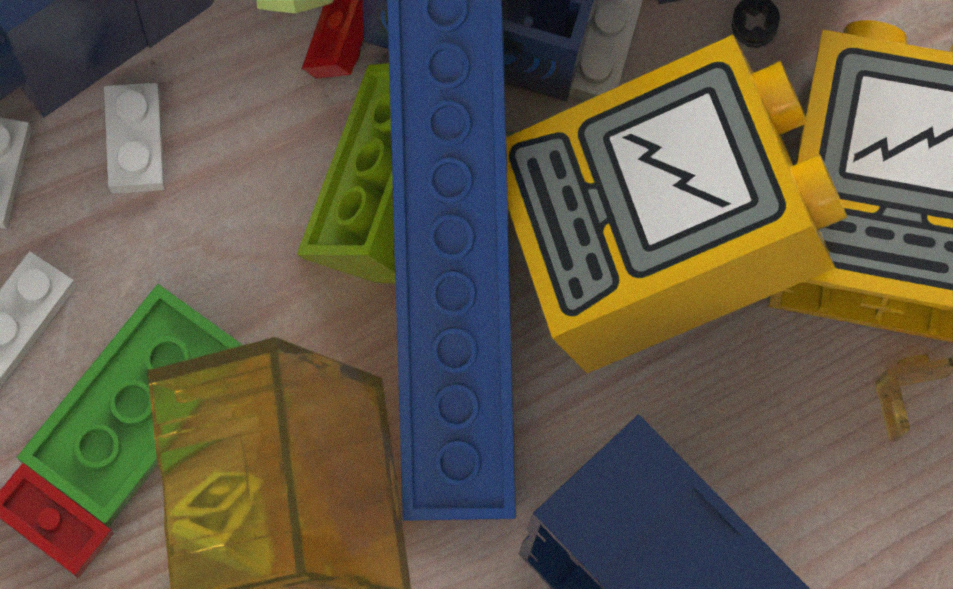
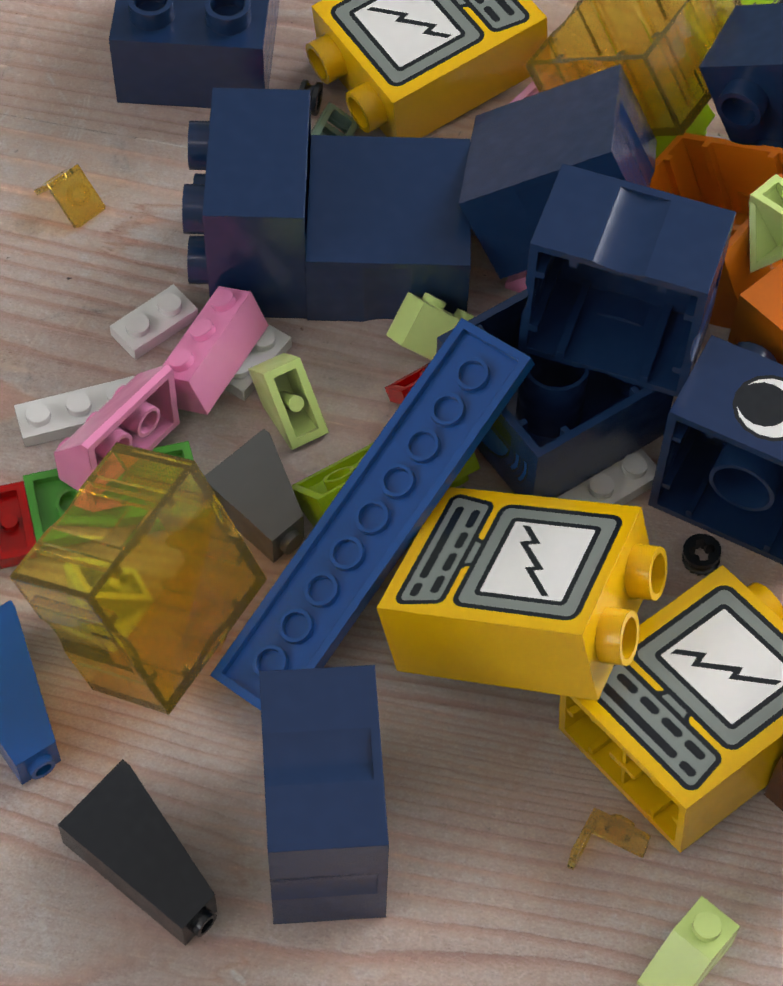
camera: 45 degrees right, 15 degrees down
(86, 335) = (135, 416): none -> bright pink slope
(89, 170) = (215, 348): none -> bright pink slope
(217, 155) = (289, 399): none -> yellowish green slope
(285, 290) = (259, 497): none -> dark grey slope

